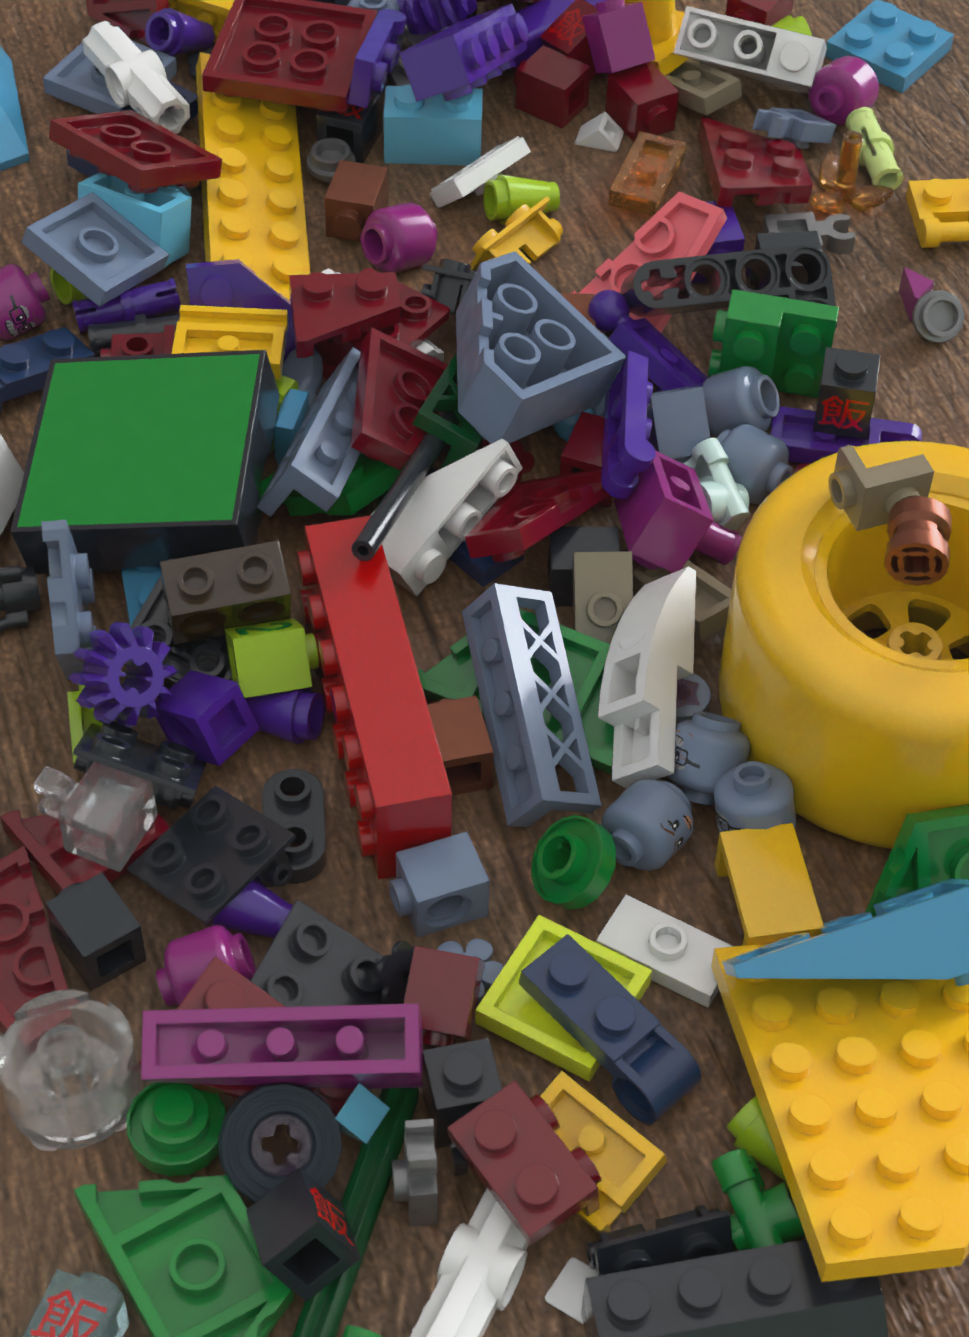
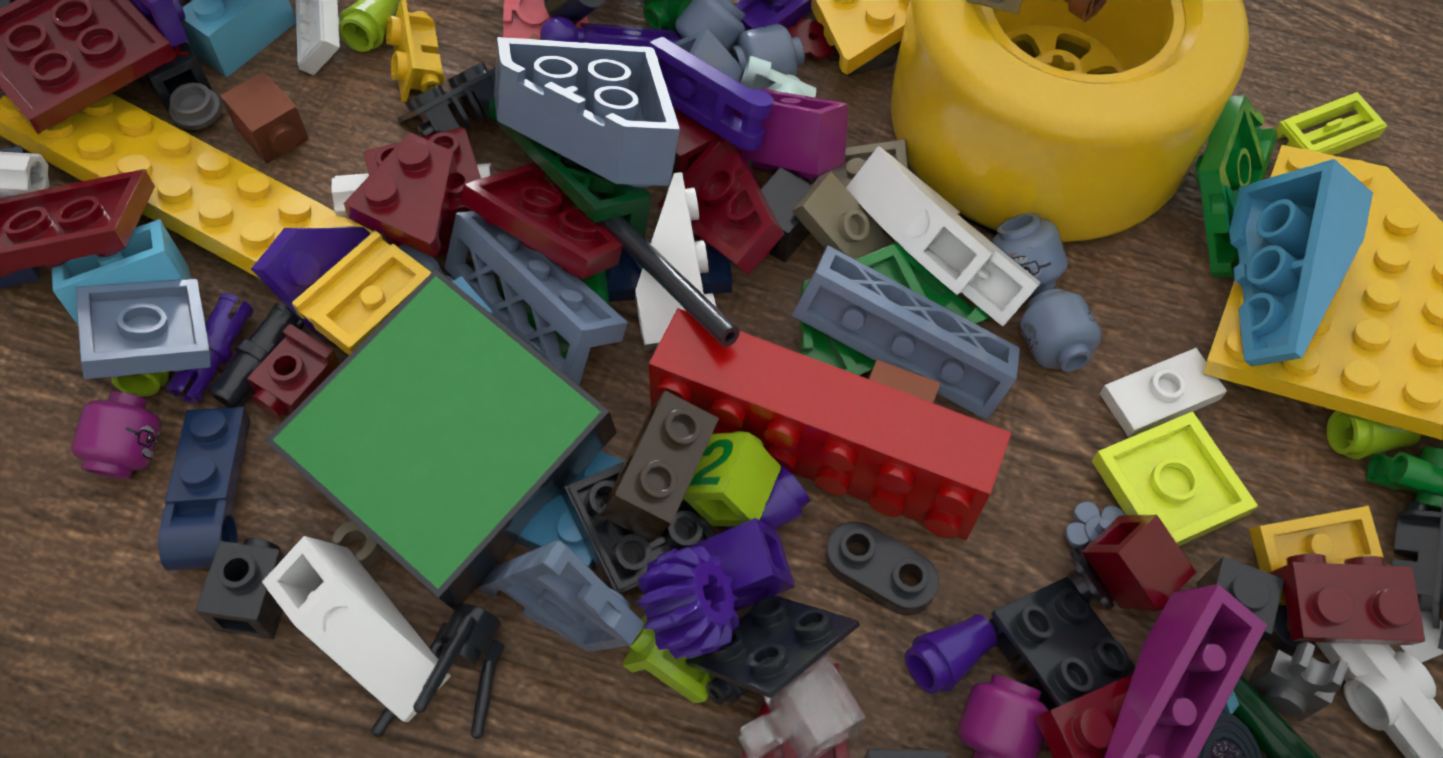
camera: 55 degrees left, 10 degrees up
(215, 855) = (905, 649): black hinge -> none
(399, 237) = (335, 115): magenta head -> none
(440, 884) = (1024, 499): sand blue brick -> none
(573, 862) = (1064, 398): green plate -> none
(645, 1059) = (1233, 469): dark blue plate -> none
(754, 798) = (1096, 260): sand blue head -> none
(768, 883) = (1171, 291): yellow panel -> none

